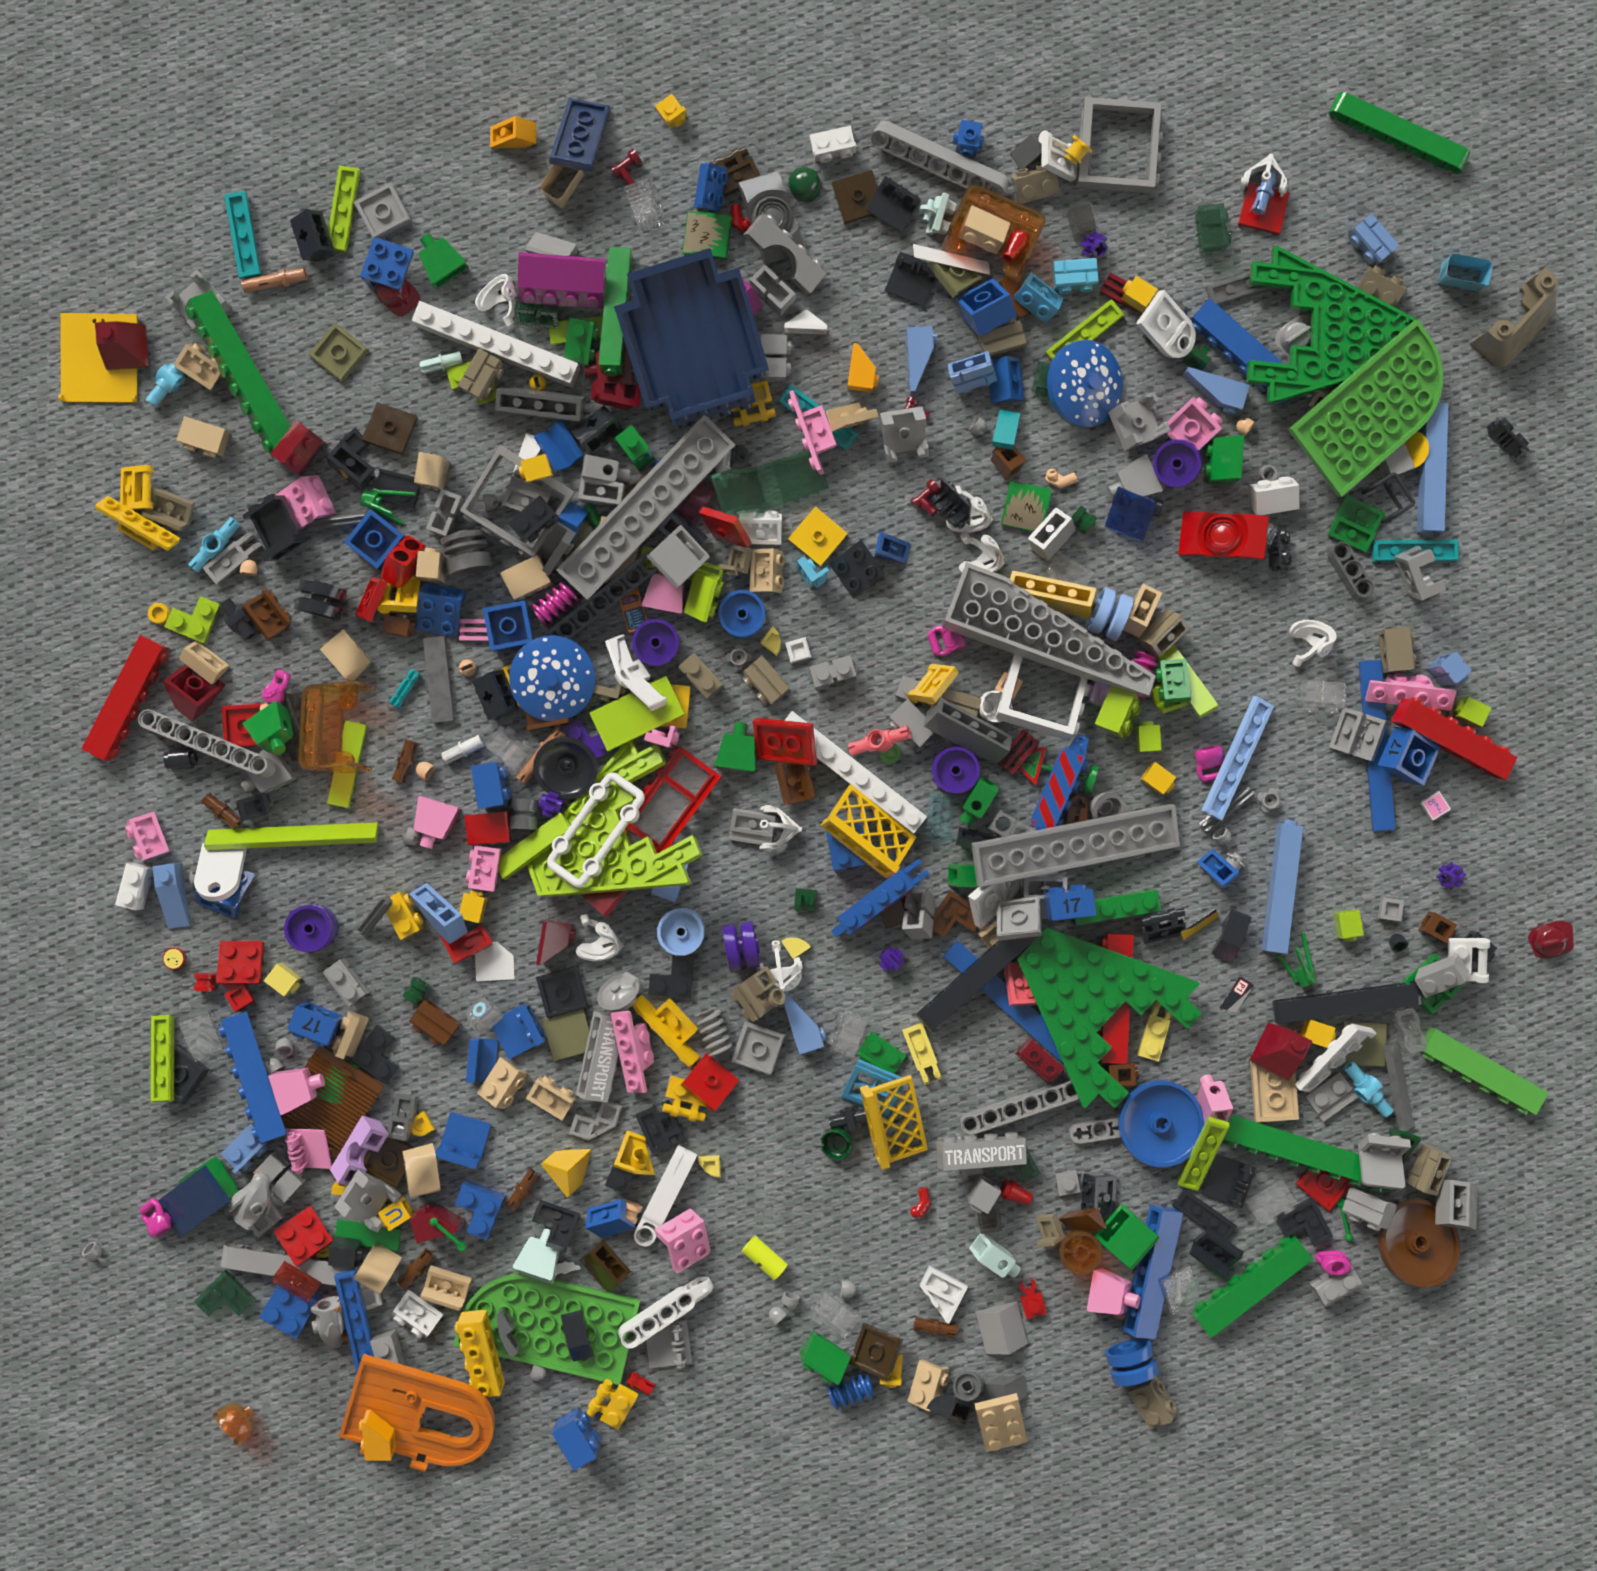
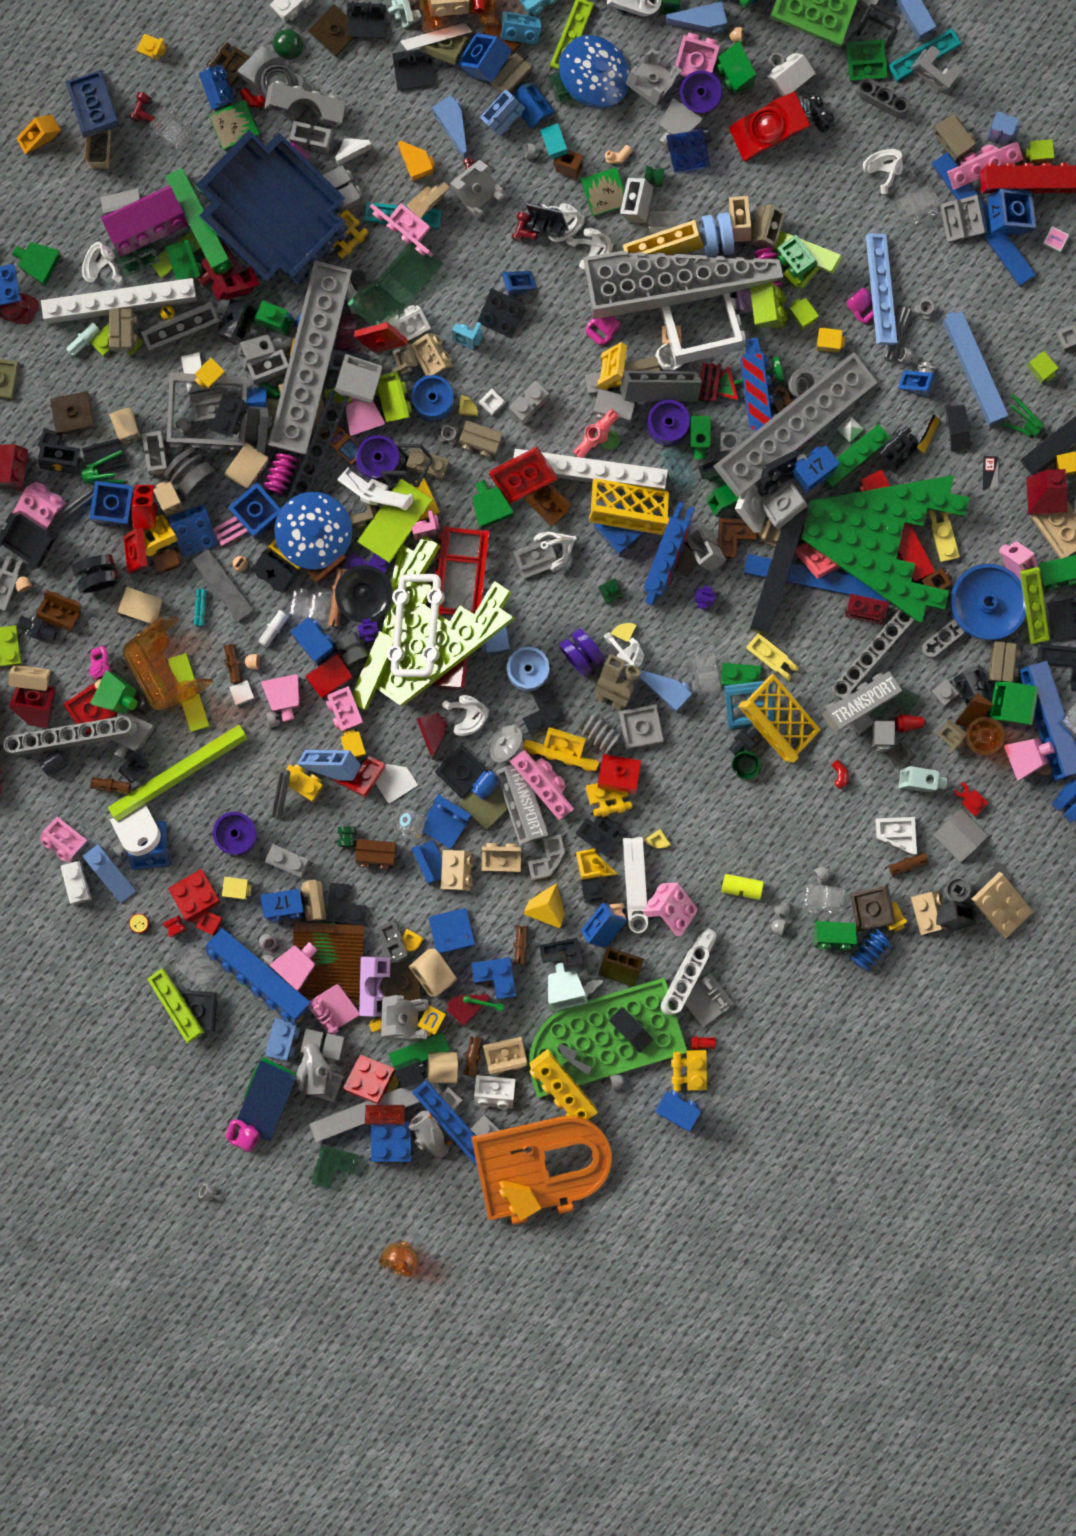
camera: 30 degrees left, 5 degrees down
(397, 793) = (241, 693): none -> white tile
(559, 446) = (214, 347): blue panel -> none
(575, 1019) = (485, 784): none -> blue brick
(682, 645) = (402, 472): none -> black piece
(817, 536) = (455, 305): yellow plate -> none
(1027, 881) = (772, 472): none -> black plate
(1126, 875) = (850, 429): none -> white slope
(1140, 1188) = (1003, 662): none -> dark tan brick

